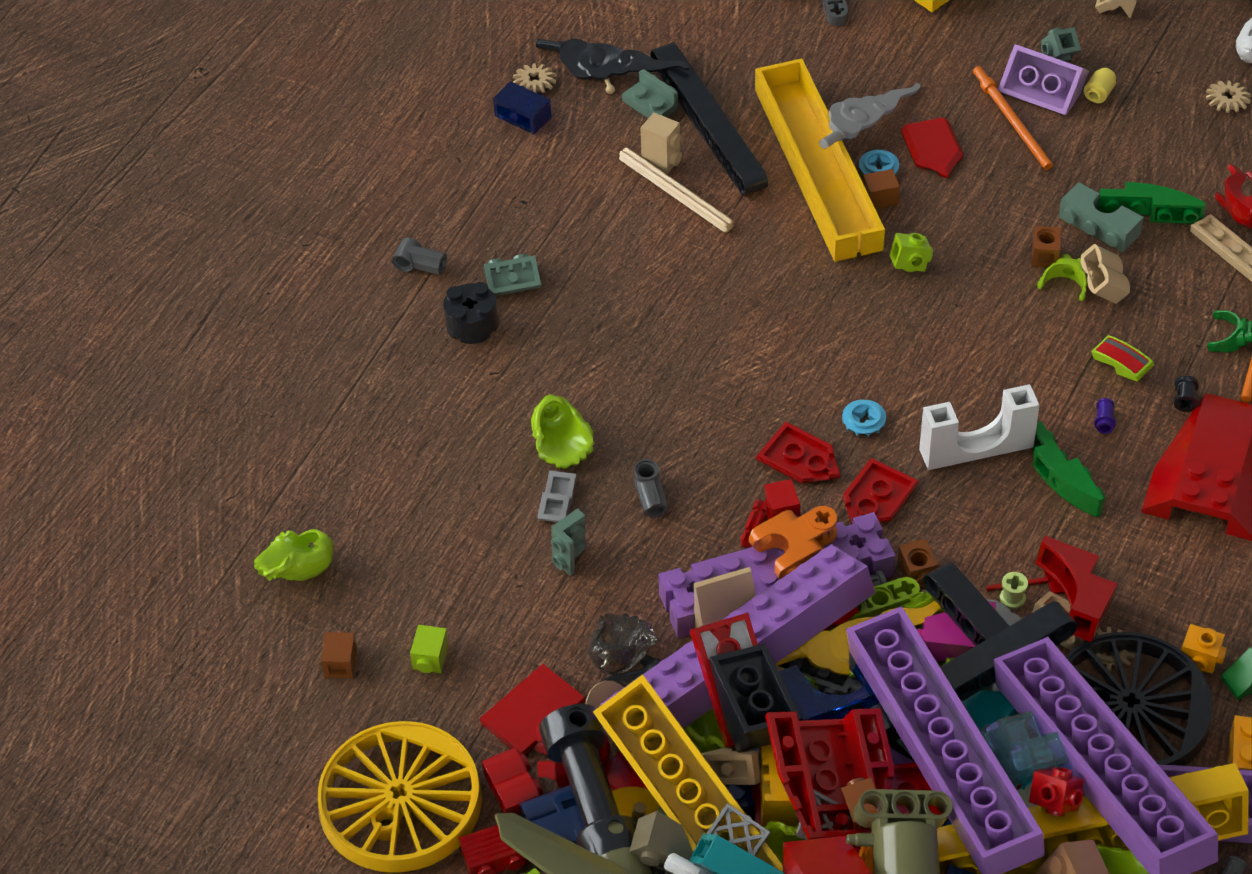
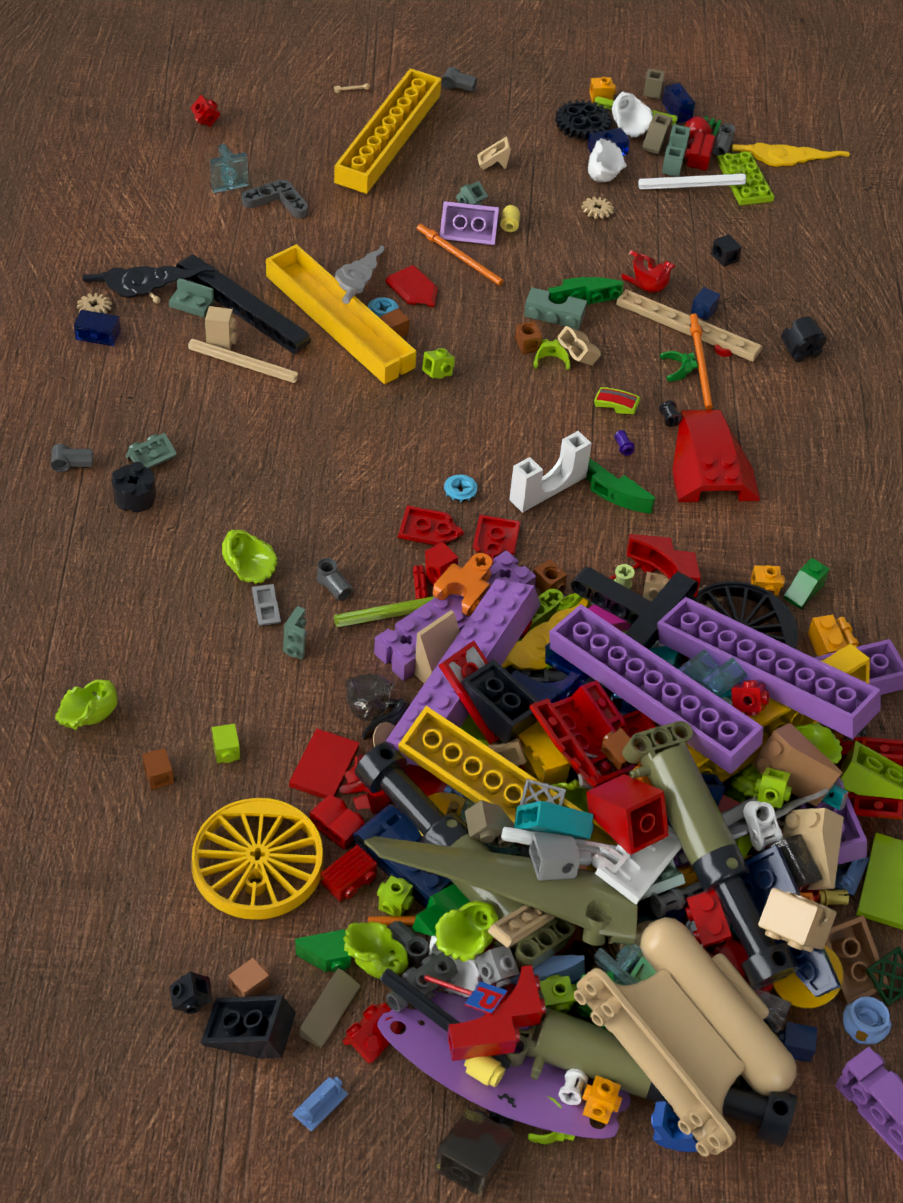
camera: 30 degrees left, 0 degrees up
(684, 545) = (380, 612): none -> lime axle

